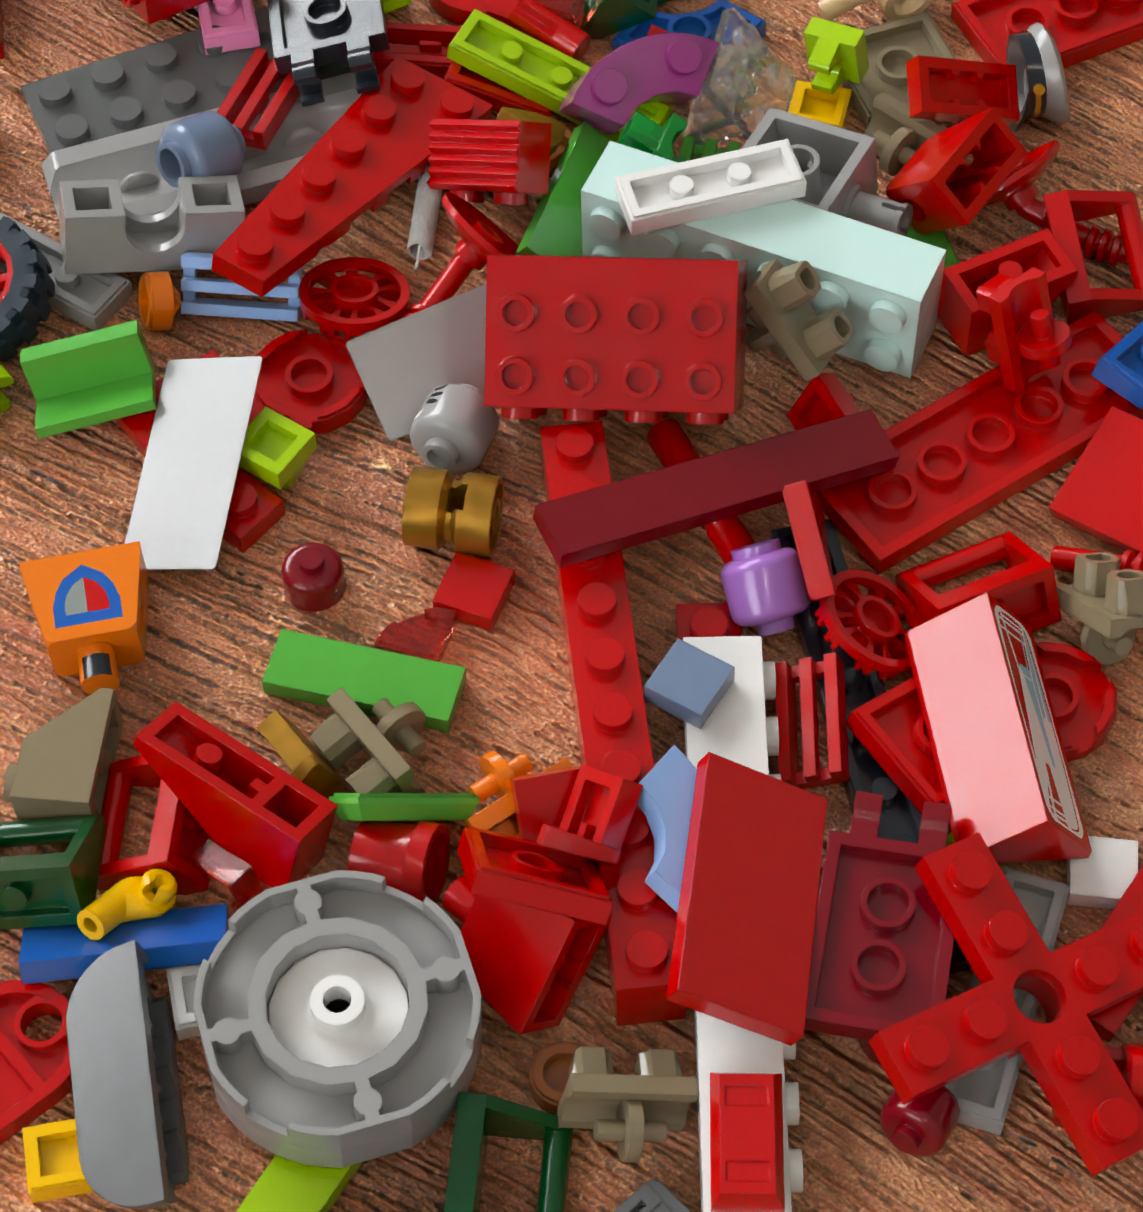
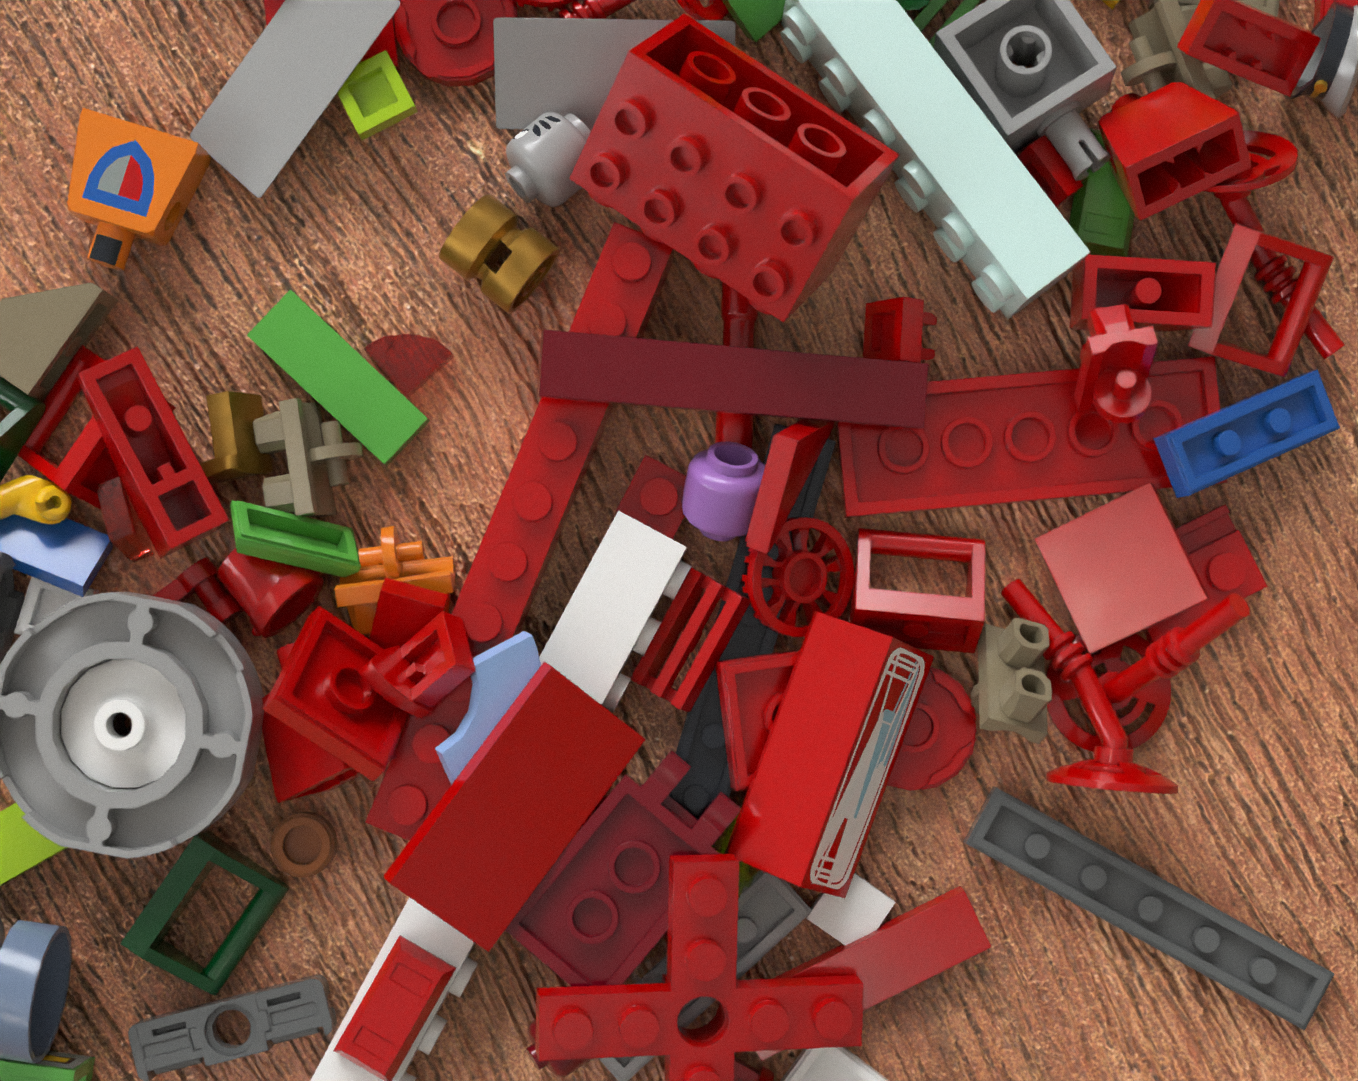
camera: 25 degrees right, 30 degrees up
(251, 512) = (329, 142): red plate -> none
(313, 577) = (349, 245): dark red piece -> none
(475, 590) = (481, 337): red tile -> none
(624, 1105) = (306, 890): dark tan hips -> none
(689, 683) = (591, 566): sand blue tile -> none
(710, 186) = (909, 56): white tile -> none
(789, 321) = (904, 235): dark tan hips -> none

